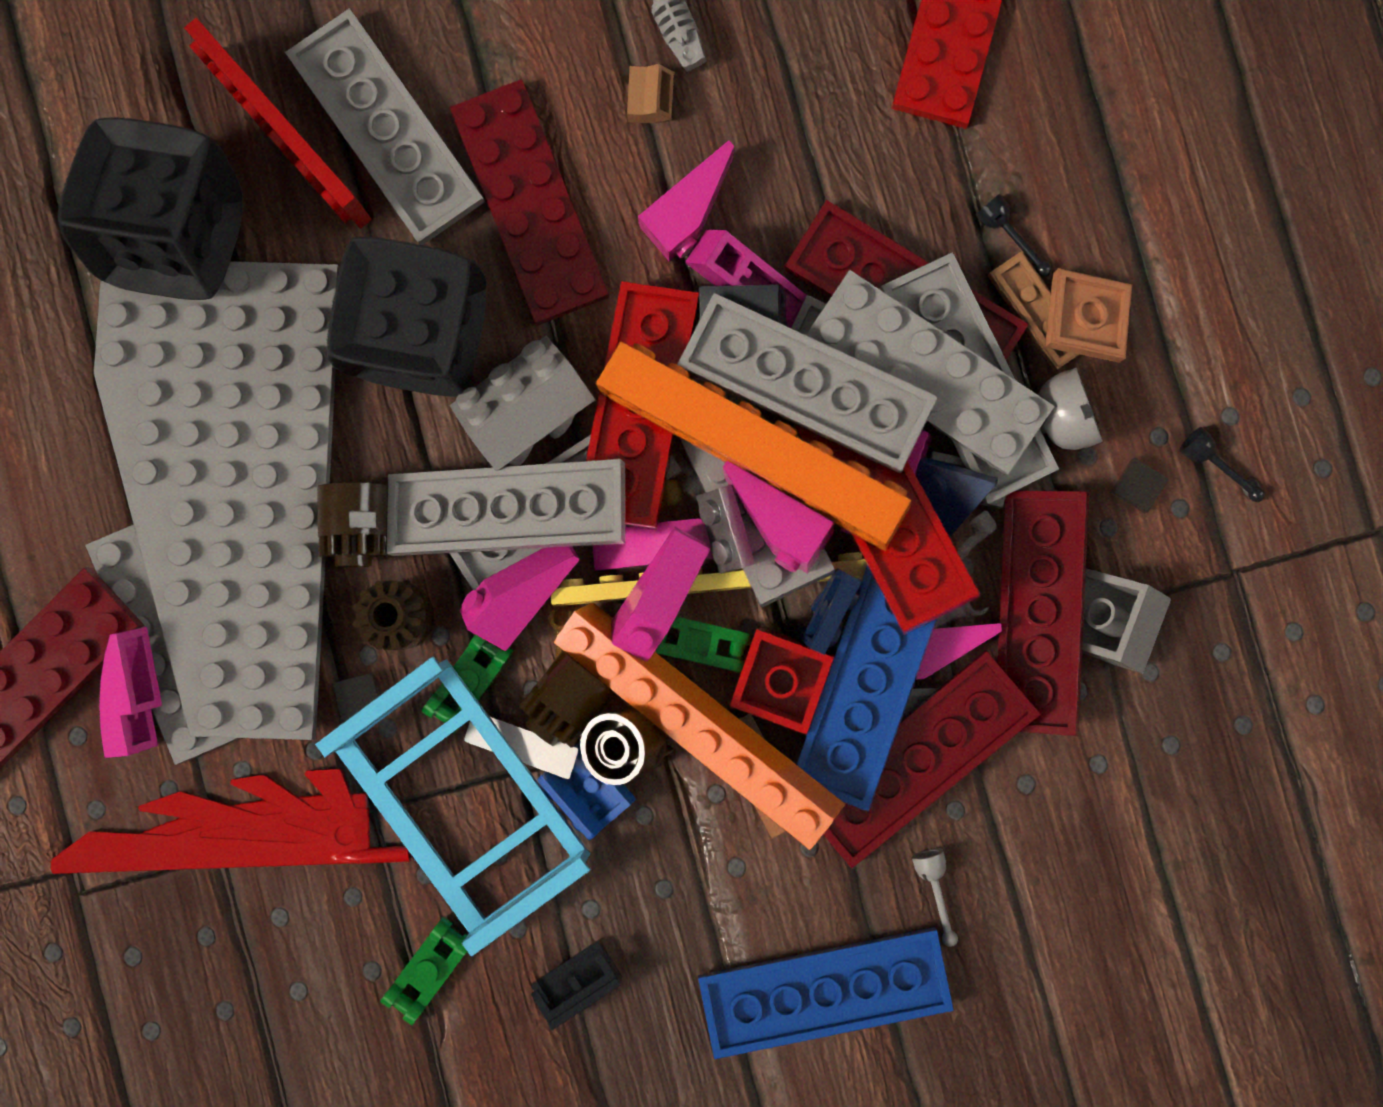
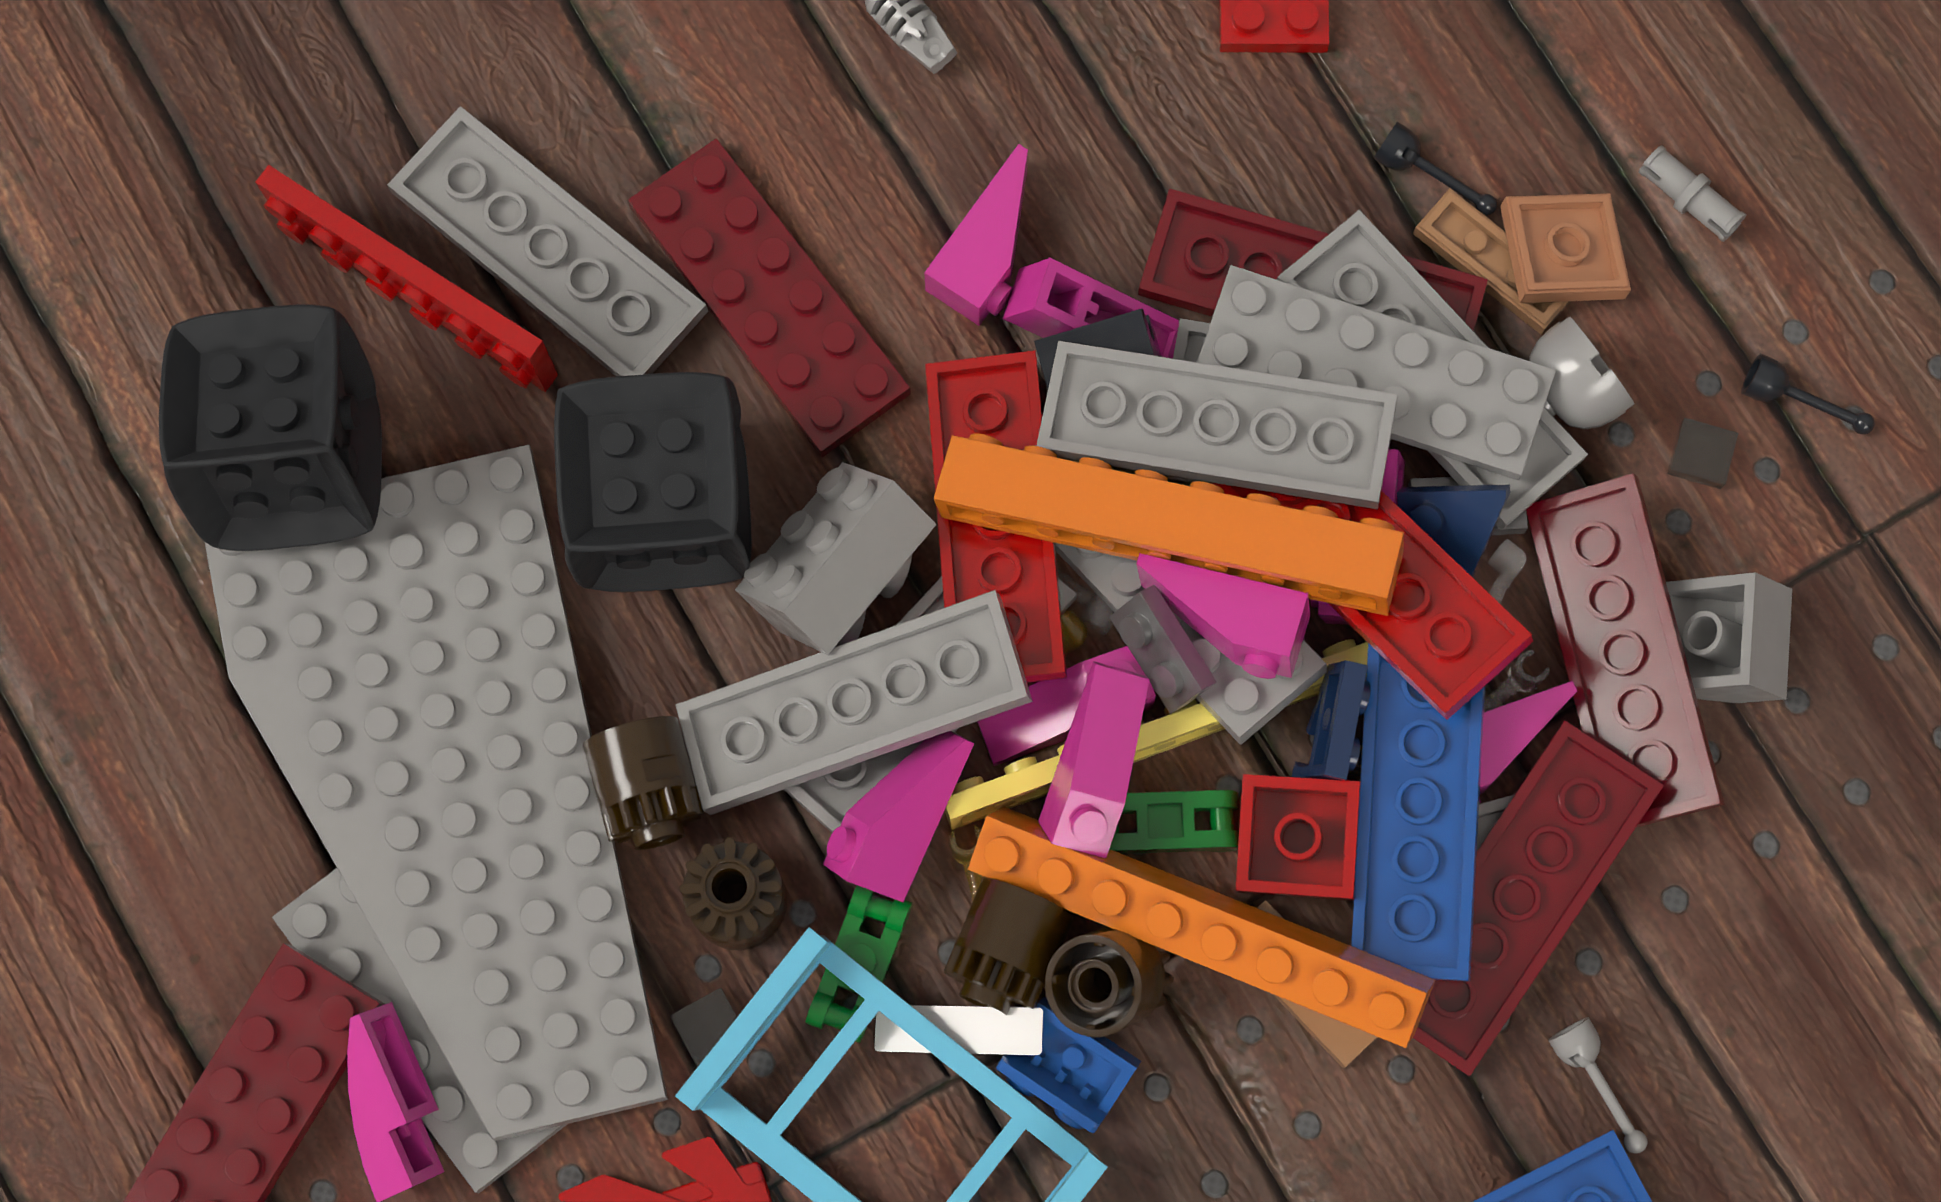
camera: 15 degrees left, 10 degrees down
(650, 94) = (893, 114): medium nougat piece -> none
(1189, 299) = (1692, 193): none -> light grey pin

